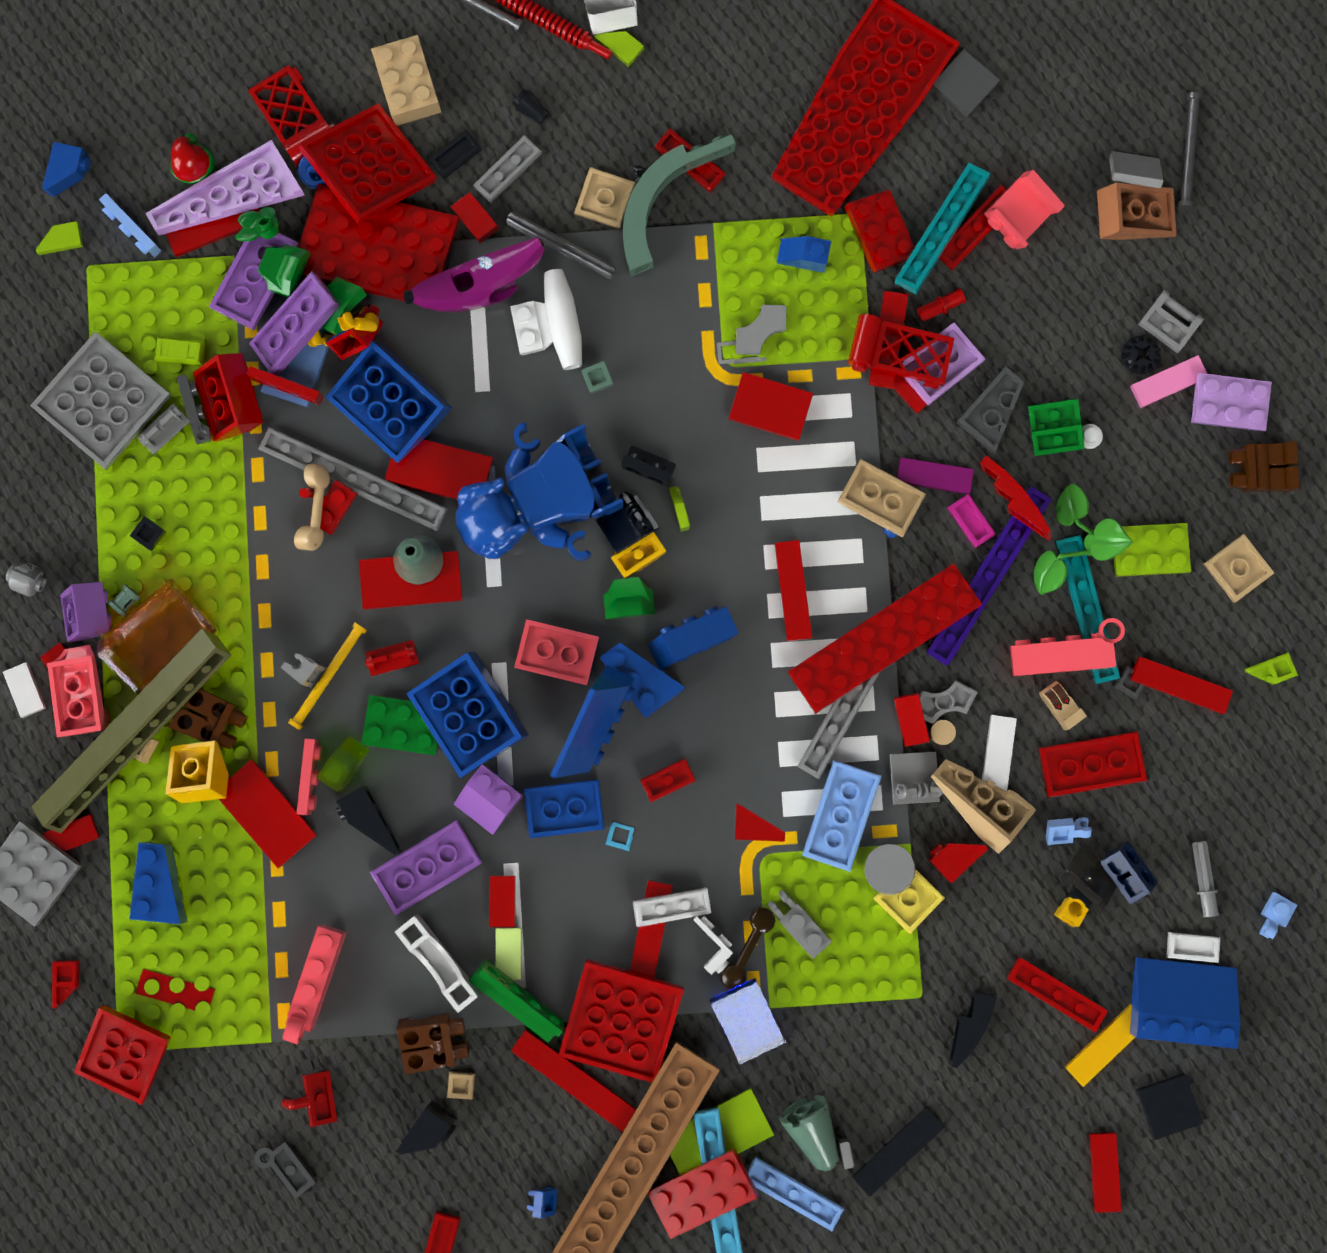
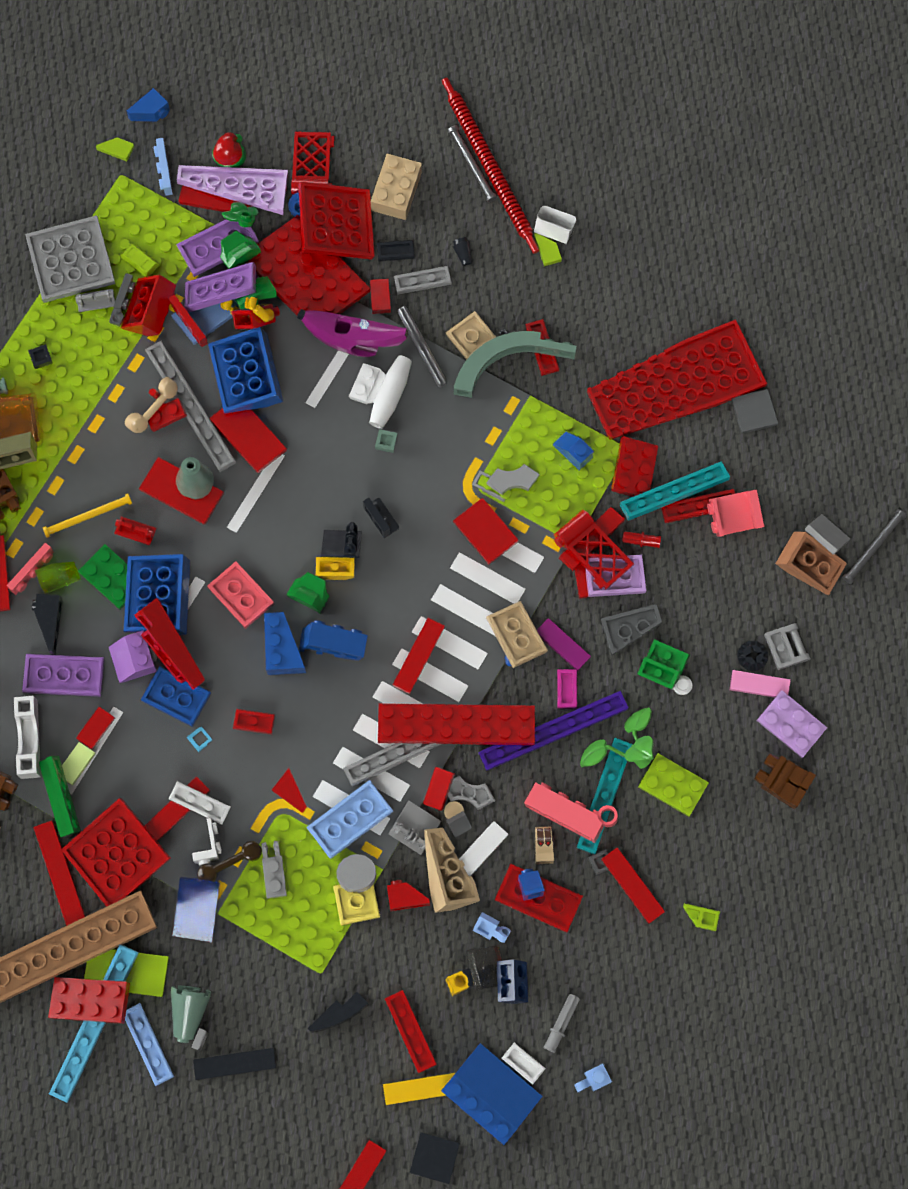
camera: 30 degrees right, 10 degrees down
(308, 671) = (75, 502): light grey hinge -> none
(516, 760) = (168, 645): none -> red wedge
(541, 496) = (298, 490): blue piece -> none
(594, 723) = (229, 648): blue slope -> none
(680, 509) = (381, 557): lime tile -> none
(958, 743) = (459, 824): none -> dark grey tile
(1020, 503) = (603, 693): red slope -> none
(1081, 758) = (530, 884): none -> blue slope
(1239, 568) = (724, 835): tan tile -> none

